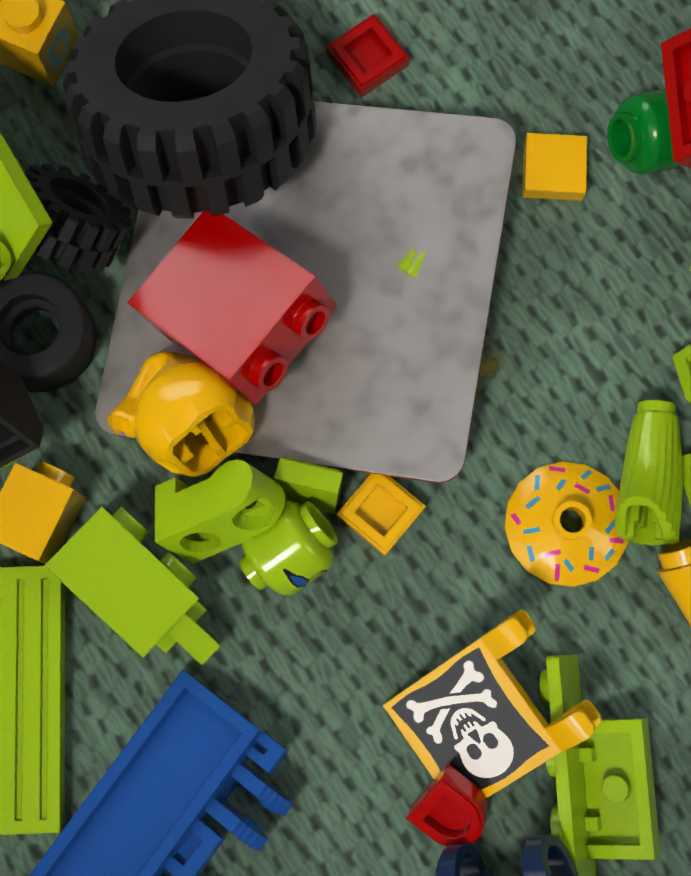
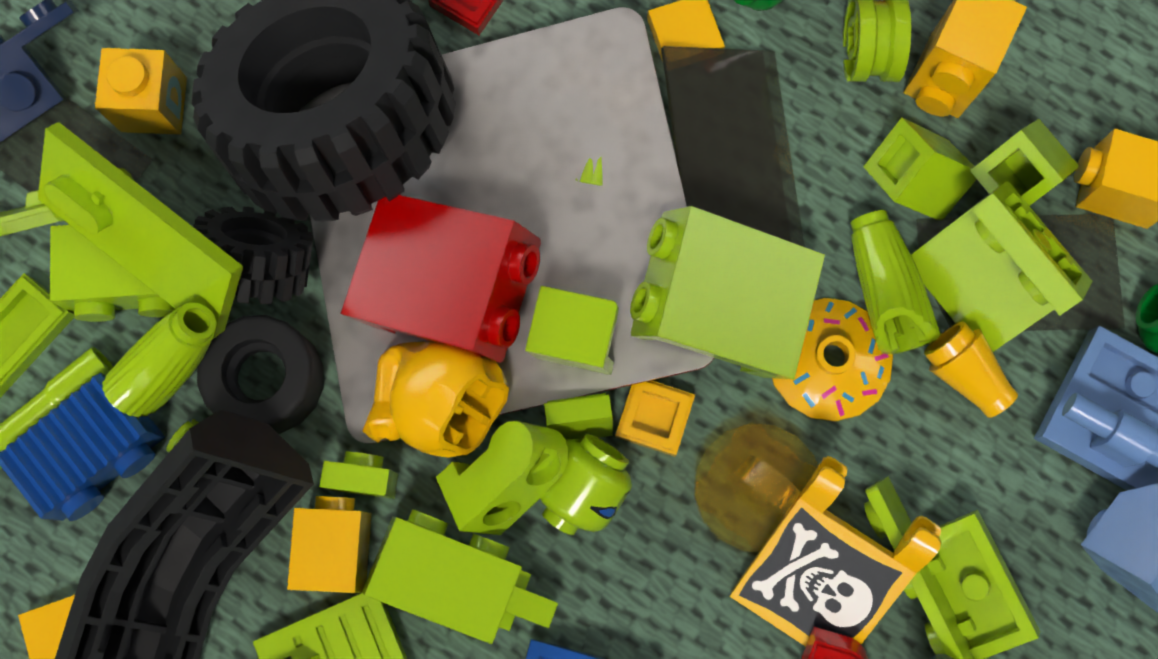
camera: 20 degrees left, 0 degrees up
(88, 458) = (359, 475): none -> lime plate
(331, 399) = (573, 330): none -> lime panel
(444, 607) = (750, 483): none -> clear yellow tile
(491, 421) = (726, 292): none -> lime panel
(552, 298) = (732, 137): none -> clear smoke piece

